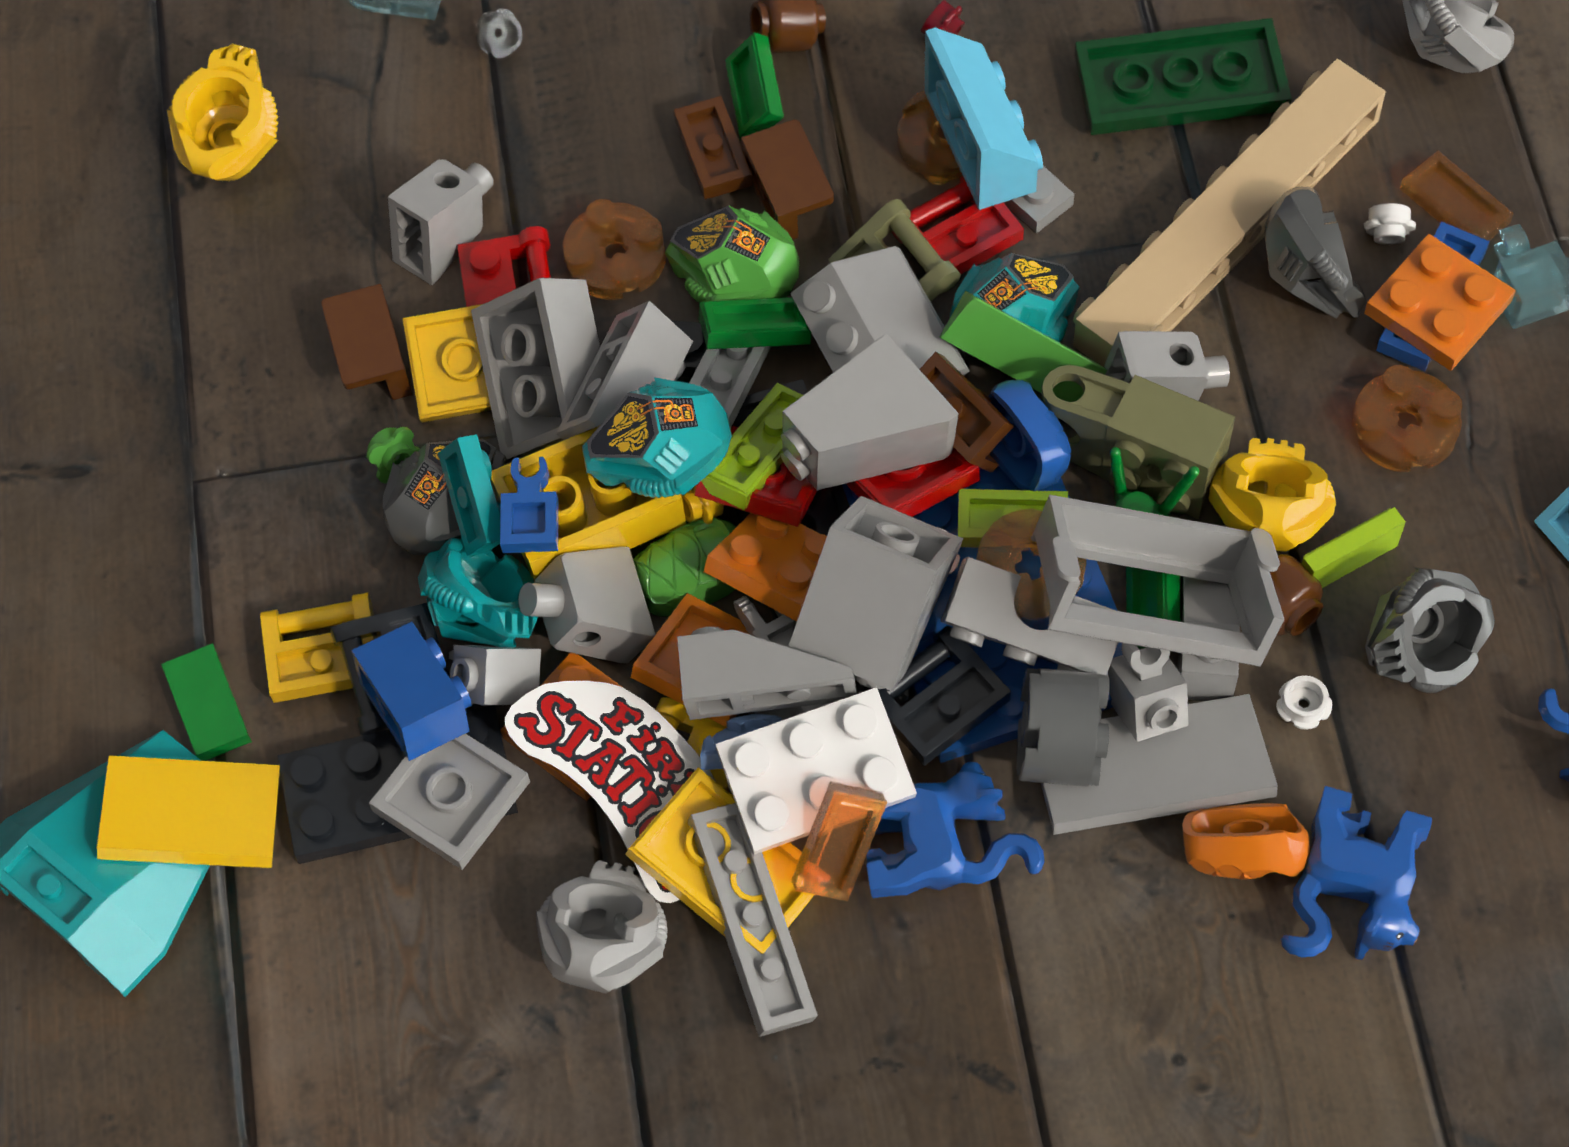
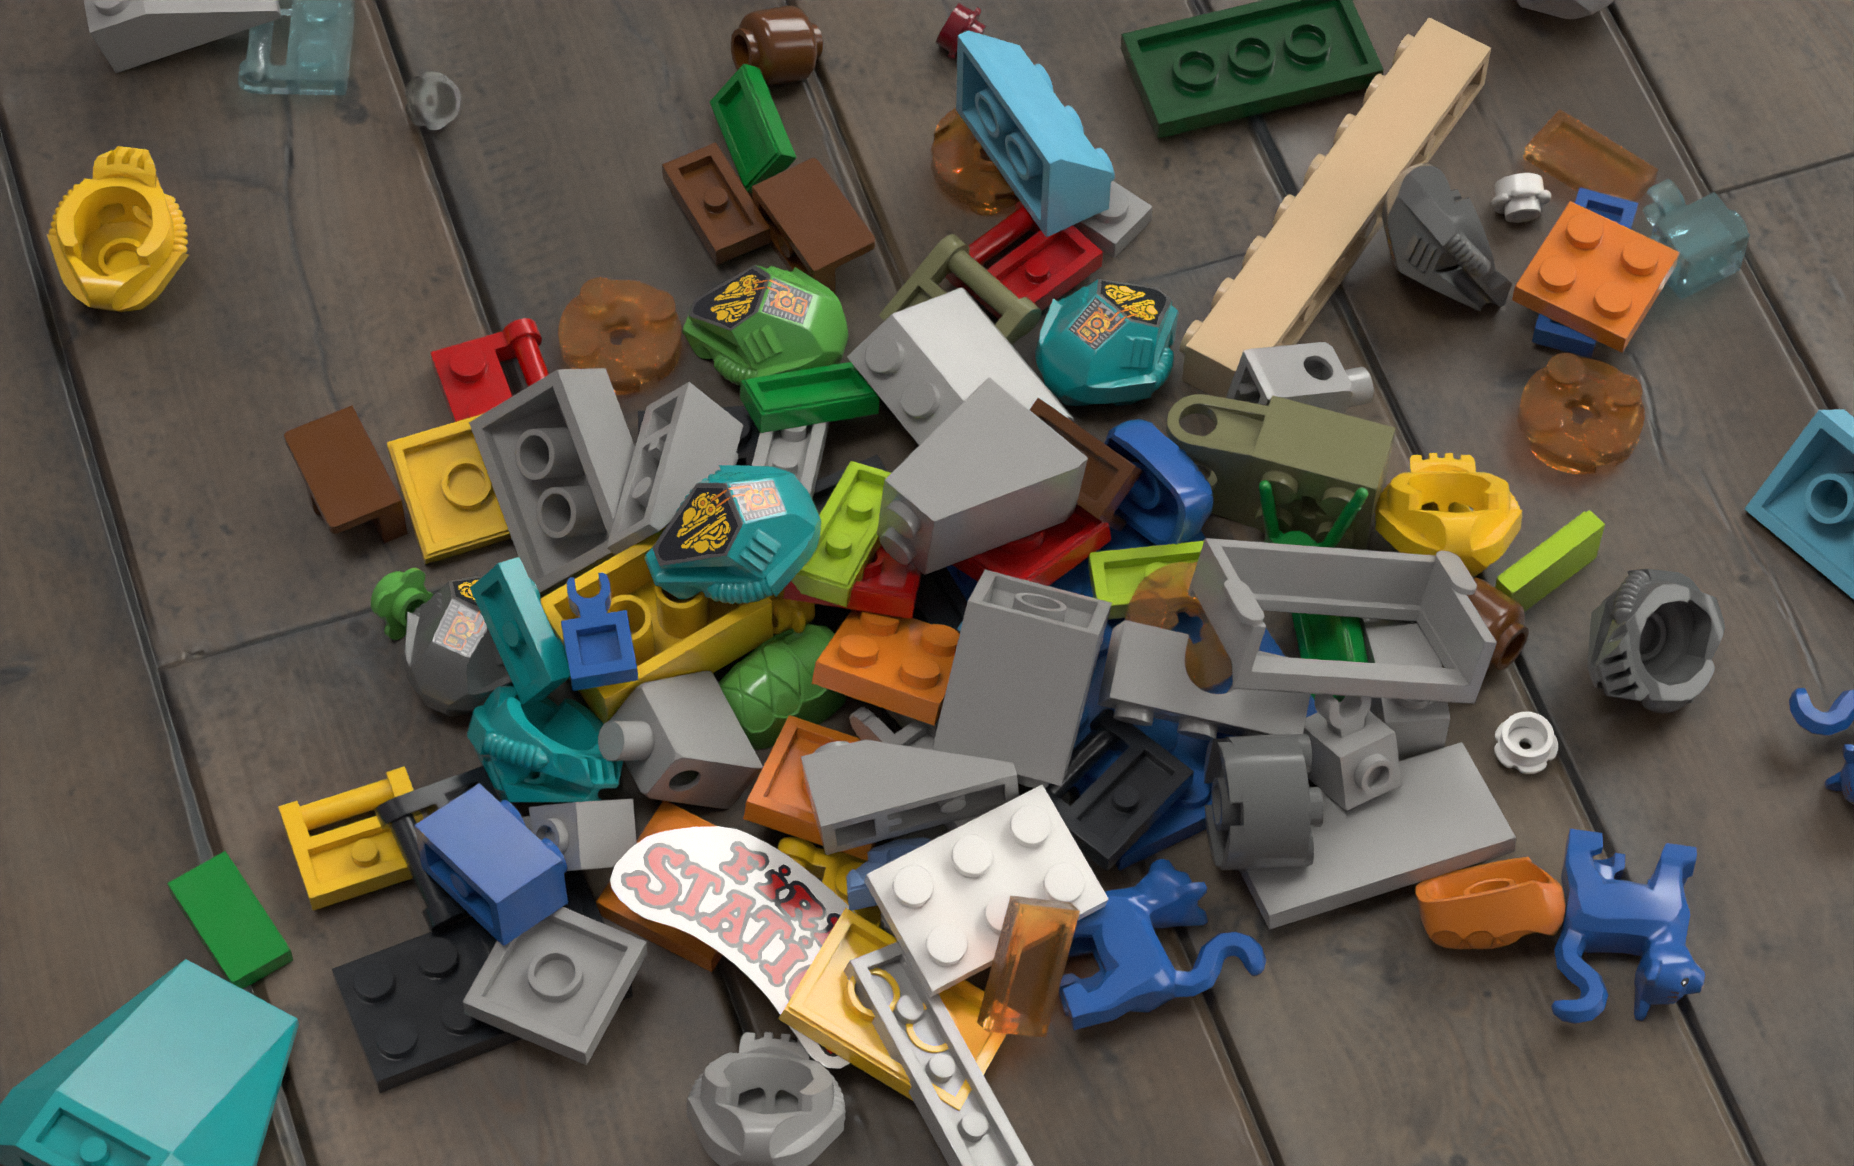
camera: 15 degrees left, 5 degrees down
(188, 812) = (243, 1045): yellow tile -> none
(435, 215) = (400, 320): light grey torso -> none
(1013, 346) = (1118, 382): bright green slope -> none

